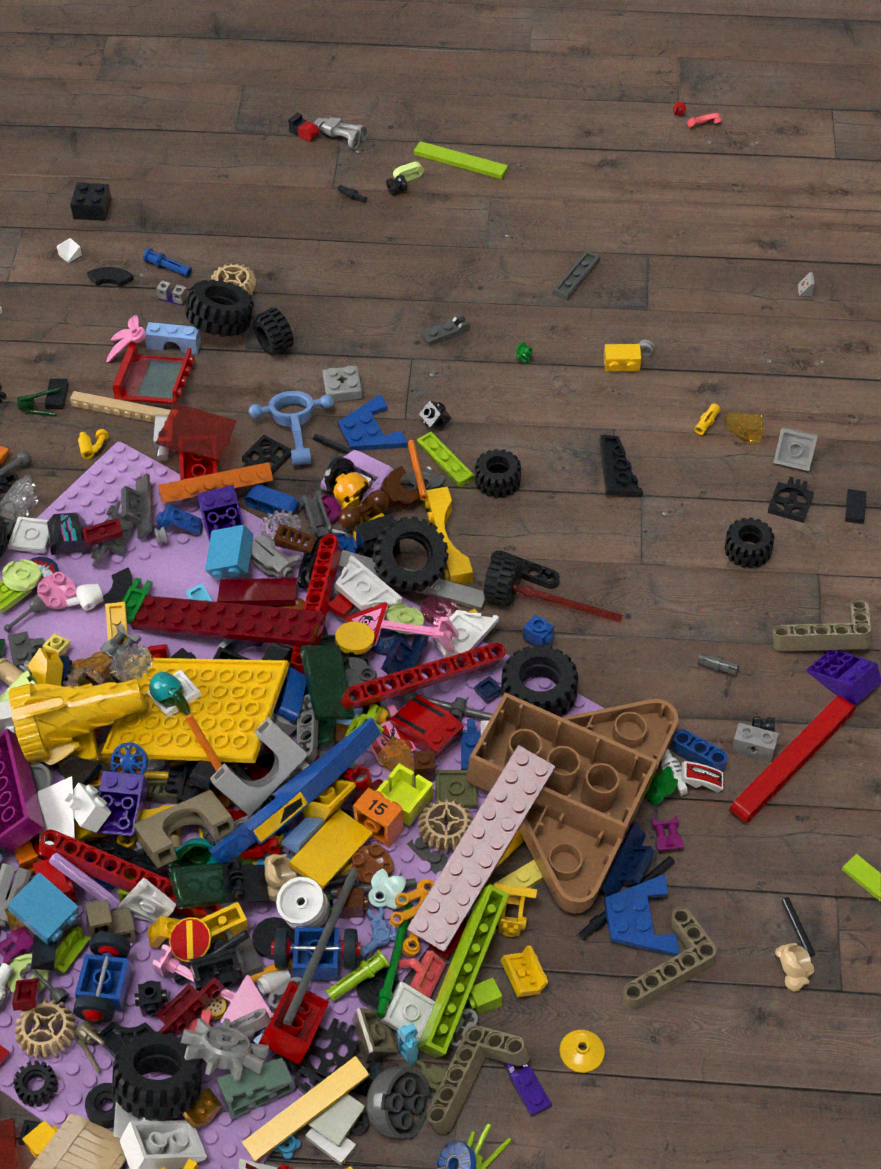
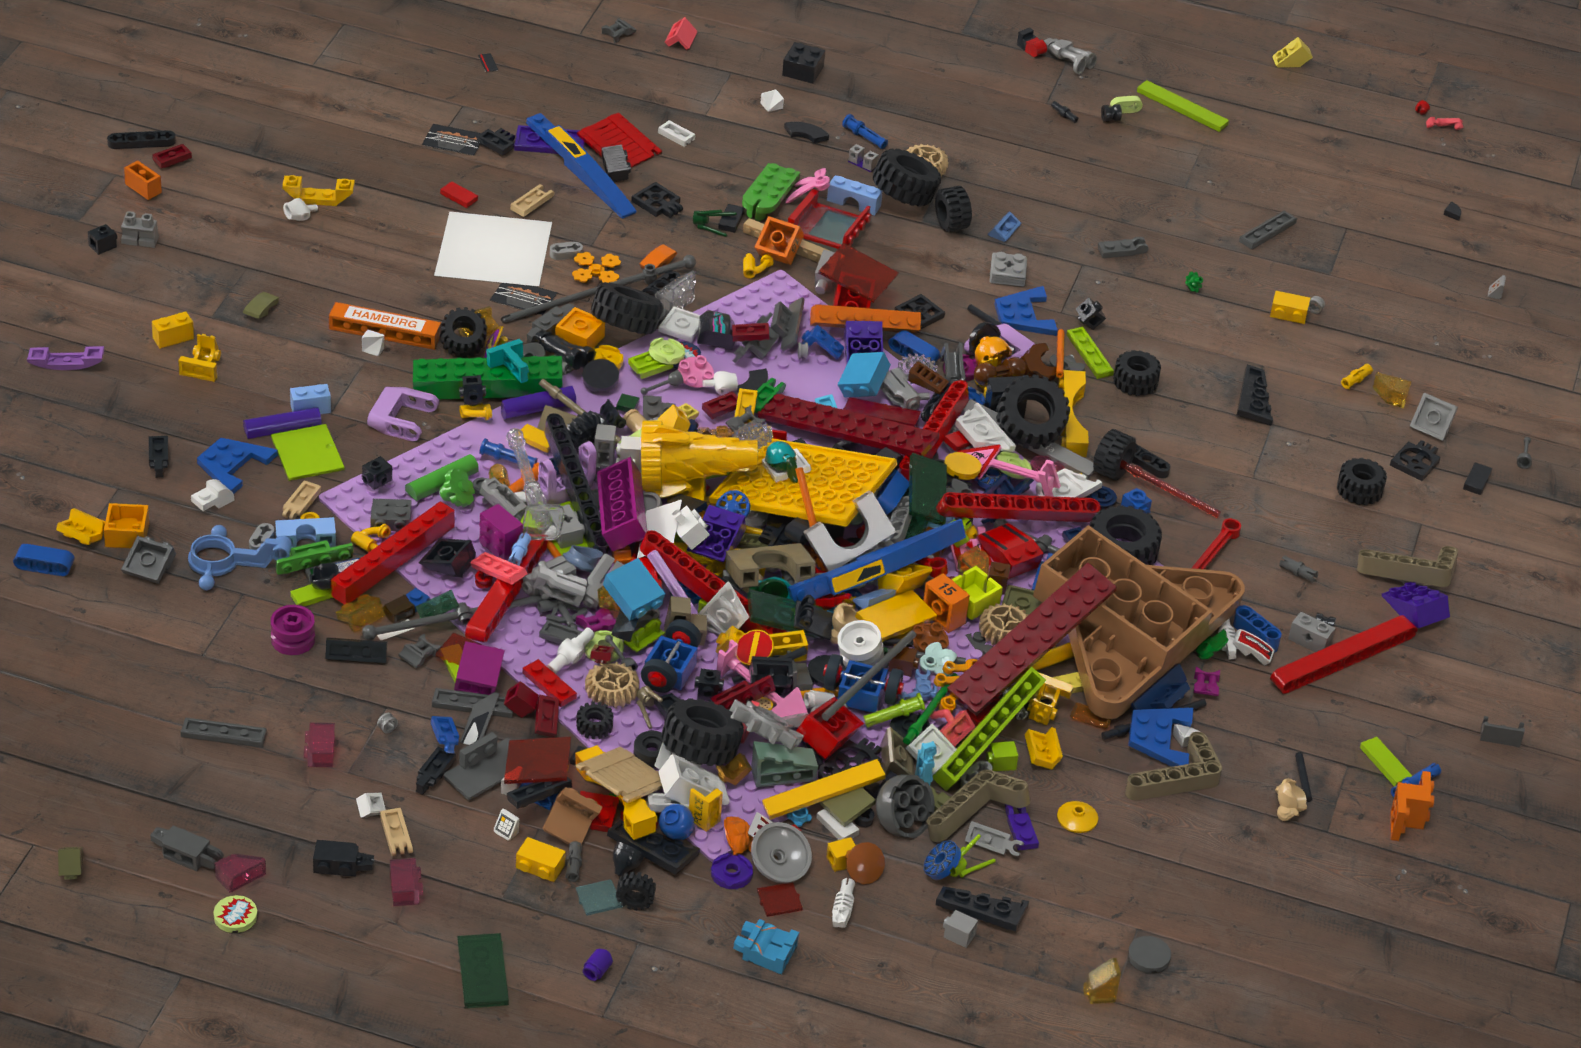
camera: 10 degrees right, 10 degrees down
(87, 353) = (769, 190): none -> bright green plate
(90, 625) = (720, 405): none -> dark red plate
(109, 411) = (779, 240): none -> orange brick
(299, 455) = (953, 287): medium blue piece -> none
(327, 336) = (1005, 227): none -> medium blue slope
(502, 1114) = (992, 839): none -> light grey plate
(510, 630) = (1104, 492): none -> dark blue gear
(547, 82) = (1293, 54): none -> light yellow slope
(552, 912) = (1084, 714): none -> clear orange tile
(629, 662) = (1220, 541): none -> red piece
(663, 908) = (1182, 734): none -> white slope
(740, 212) = (1453, 211): none -> black tile

